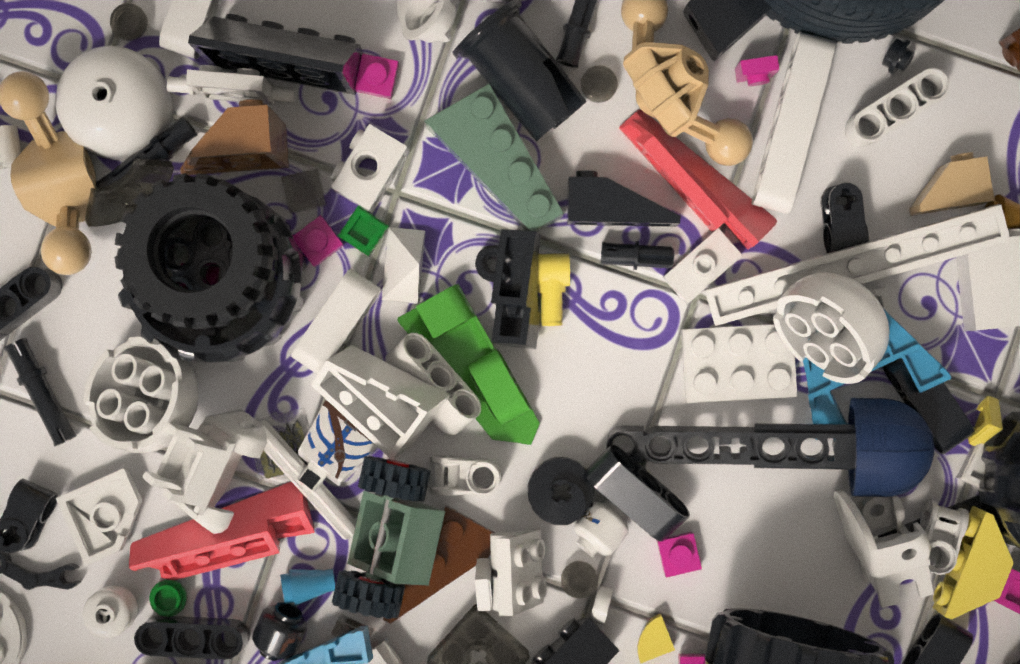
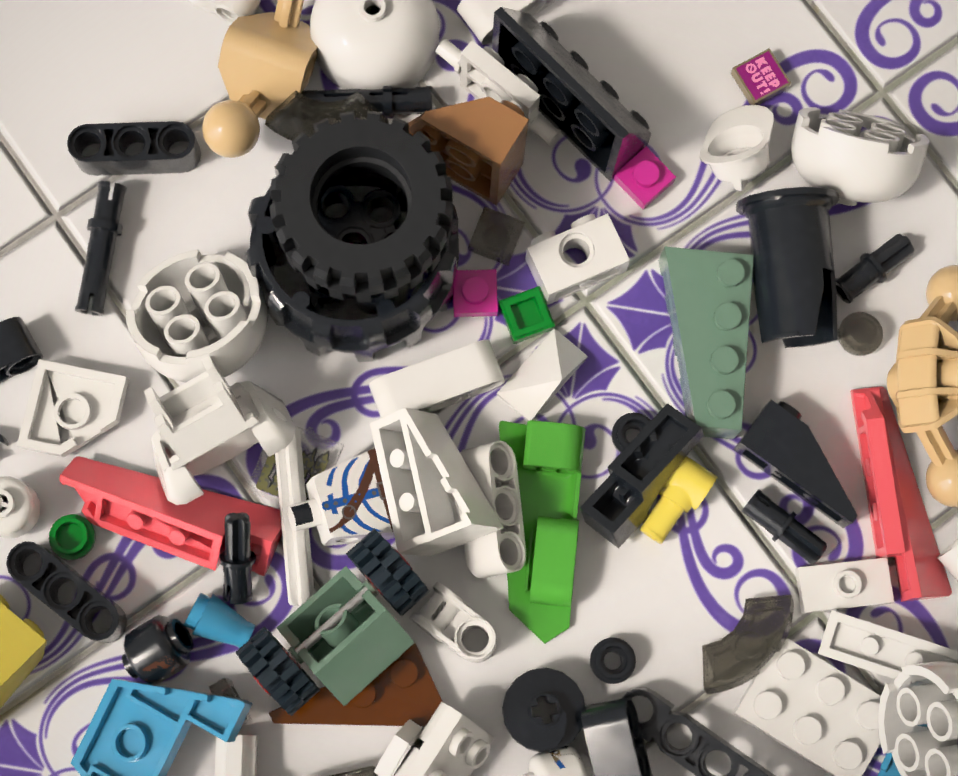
camera: 30 degrees right, 10 degrees down
(288, 537) = (237, 559): none -> black axle
(595, 425) = (627, 657): none -> black plate
(666, 351) = (750, 645): none -> clear smoke tile

